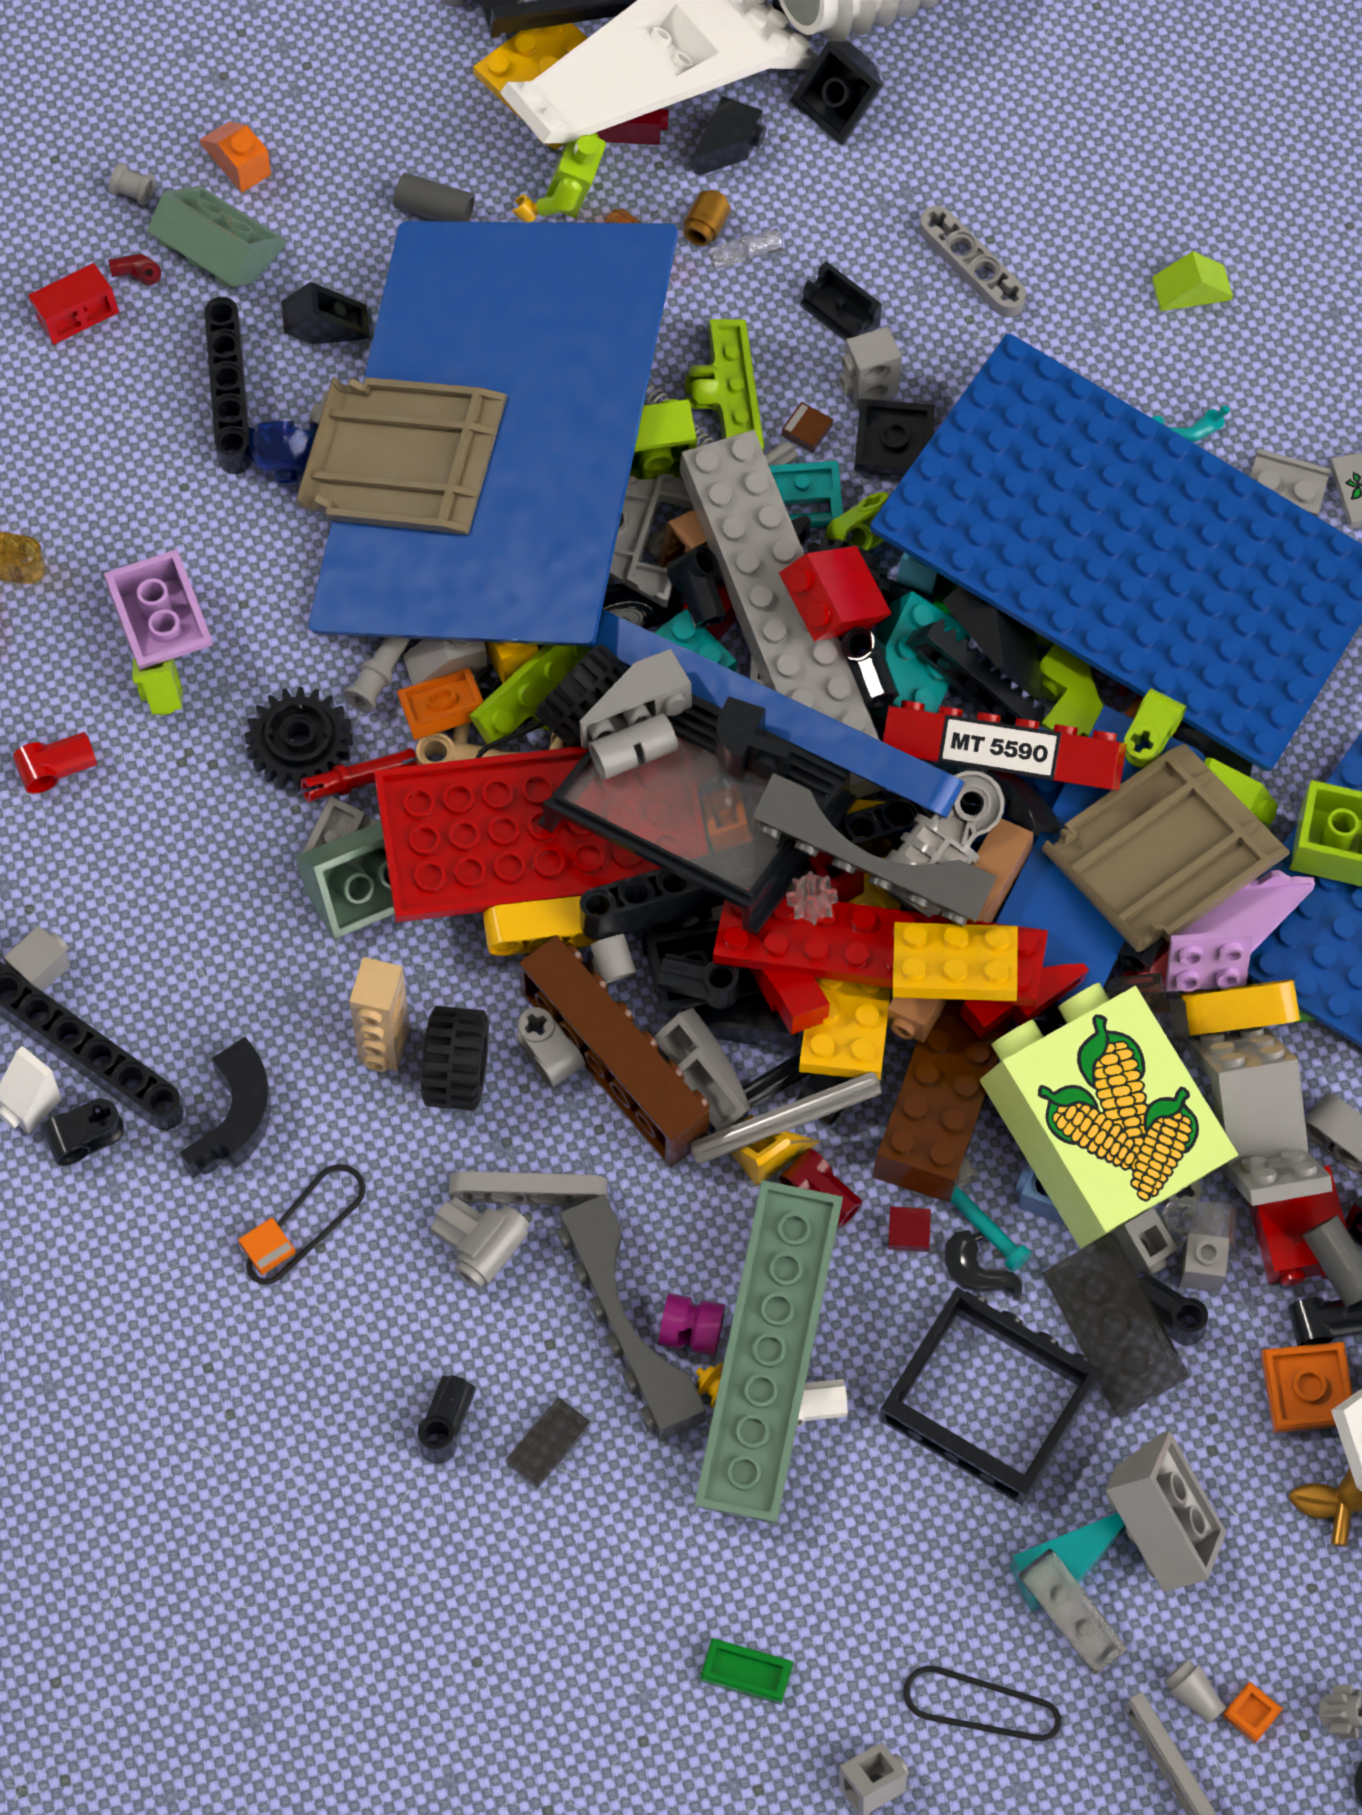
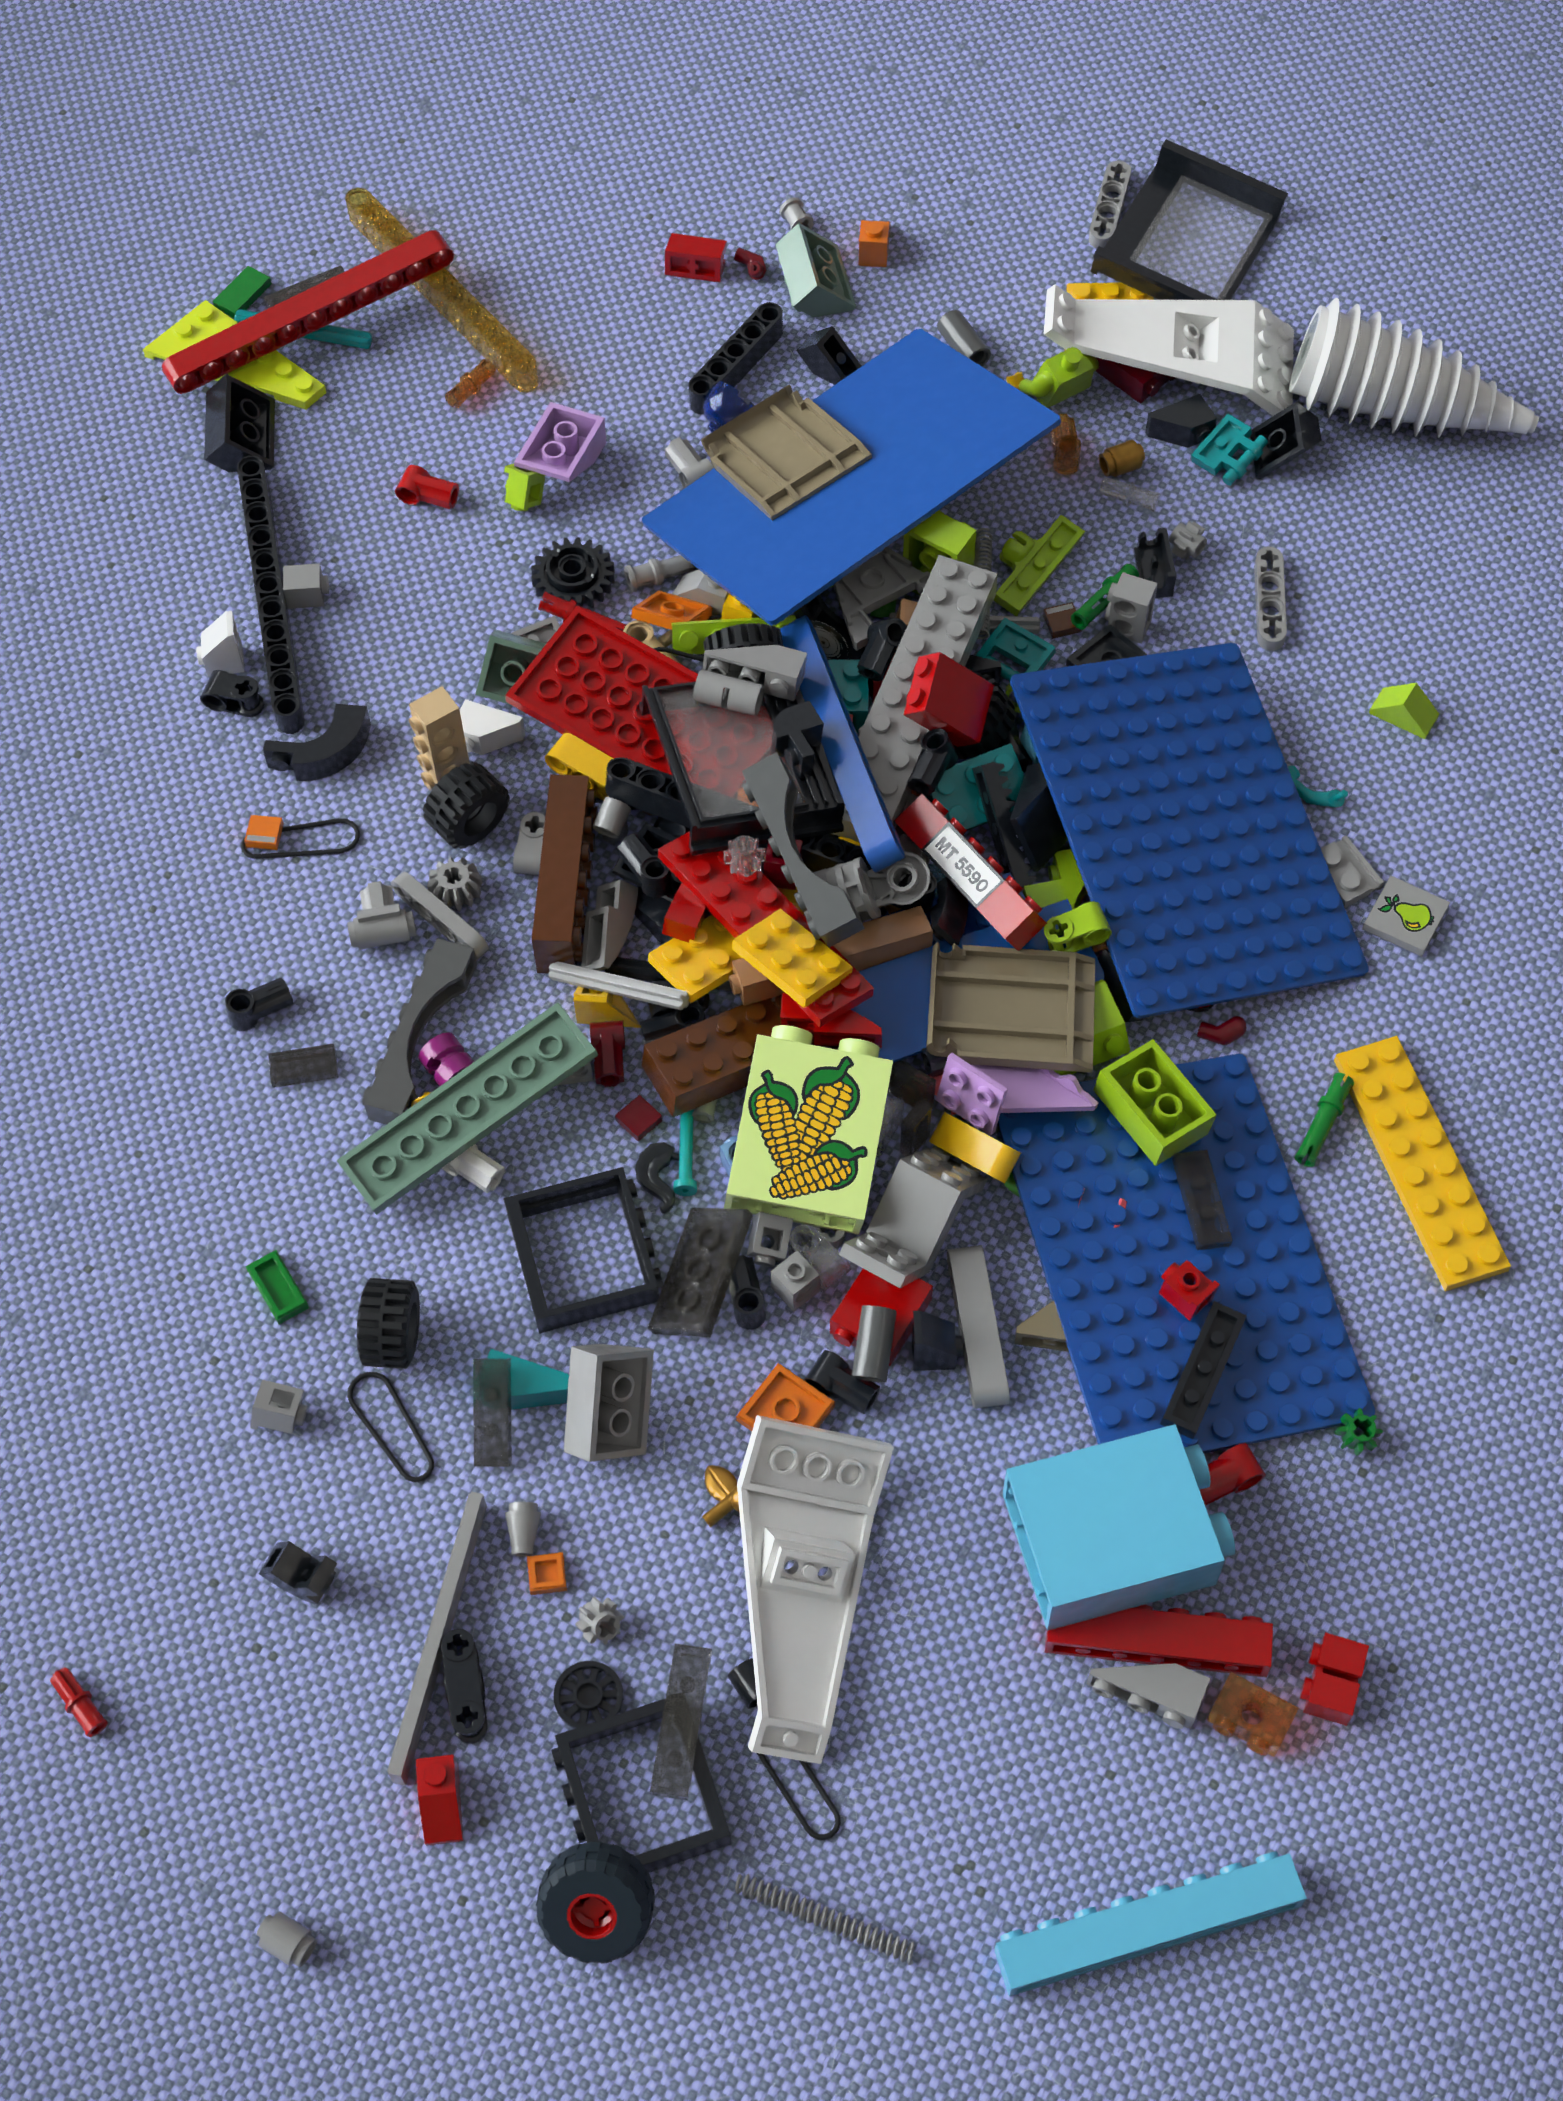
camera: 45 degrees right, 5 degrees down
(296, 535) = (686, 461): none -> light grey piece
(390, 948) = (489, 728): none -> white slope
(520, 1134) = (455, 883): none -> light grey gear
(785, 134) = (1223, 443): none -> teal plate
(826, 361) = (1085, 613): none -> green pin
(849, 256) = (1188, 540): none -> light grey gear
(854, 1124) = (671, 1022): none -> black piece
(903, 1612) = (388, 1323): none -> black tyre
(1332, 724) = (1224, 1033): none -> dark red arm

